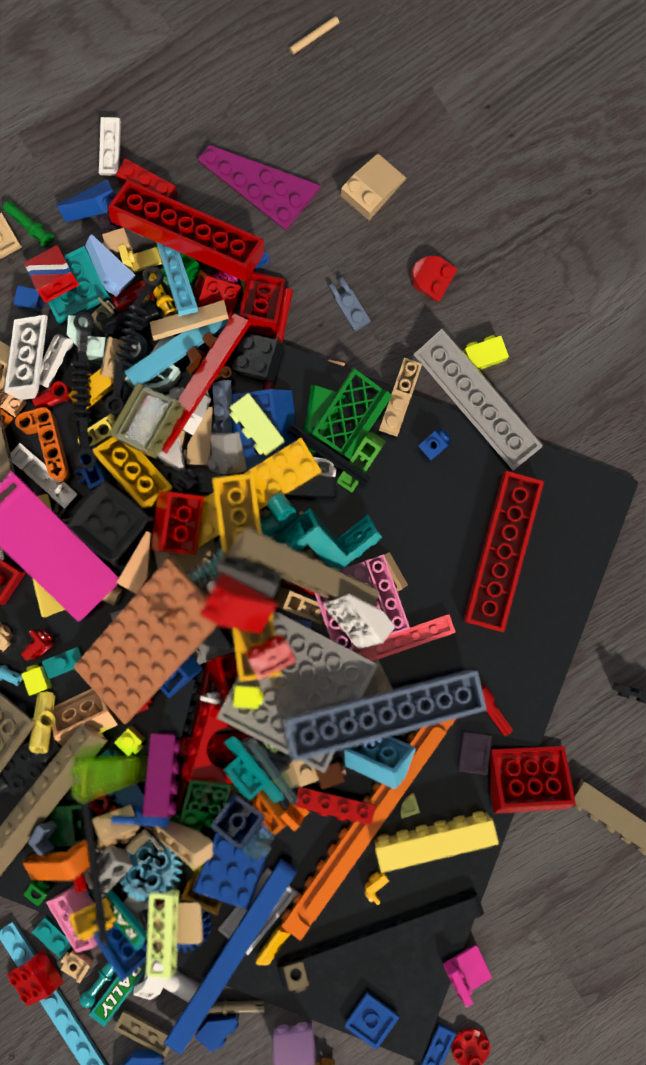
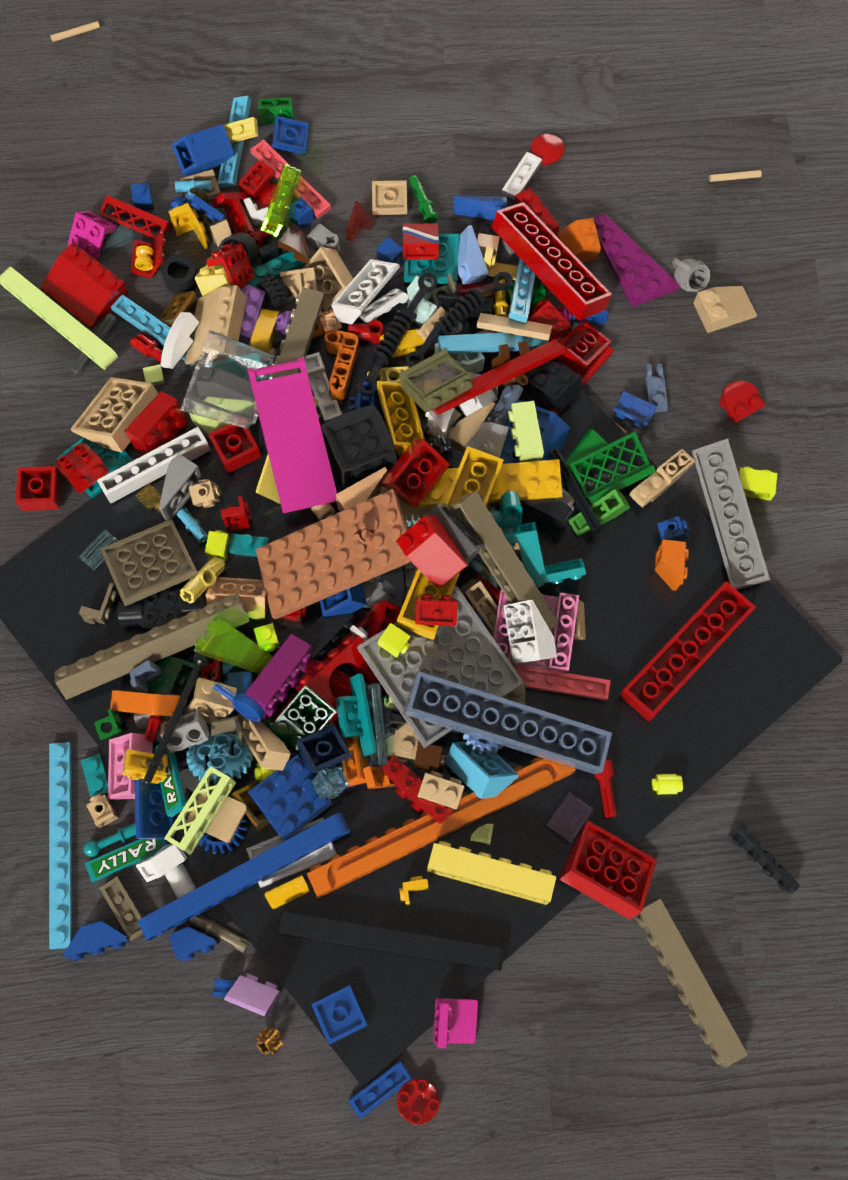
camera: 30 degrees right, 15 degrees down
(35, 978) = (58, 802): red bracket -> none
(118, 101) = (548, 148): none -> red dish
(202, 189) = (581, 239): none -> orange slope
(264, 1050) = (221, 987): none -> blue wheel
(299, 985) = (290, 937): dark tan bracket -> none
(320, 170) = (687, 273): none -> light grey helmet
(341, 339) = (635, 409): none -> blue bracket
(356, 795) = (440, 790): none -> tan bracket
(449, 478) = (671, 562): none -> orange slope
(542, 679) = (667, 784): none -> neon yellow brick

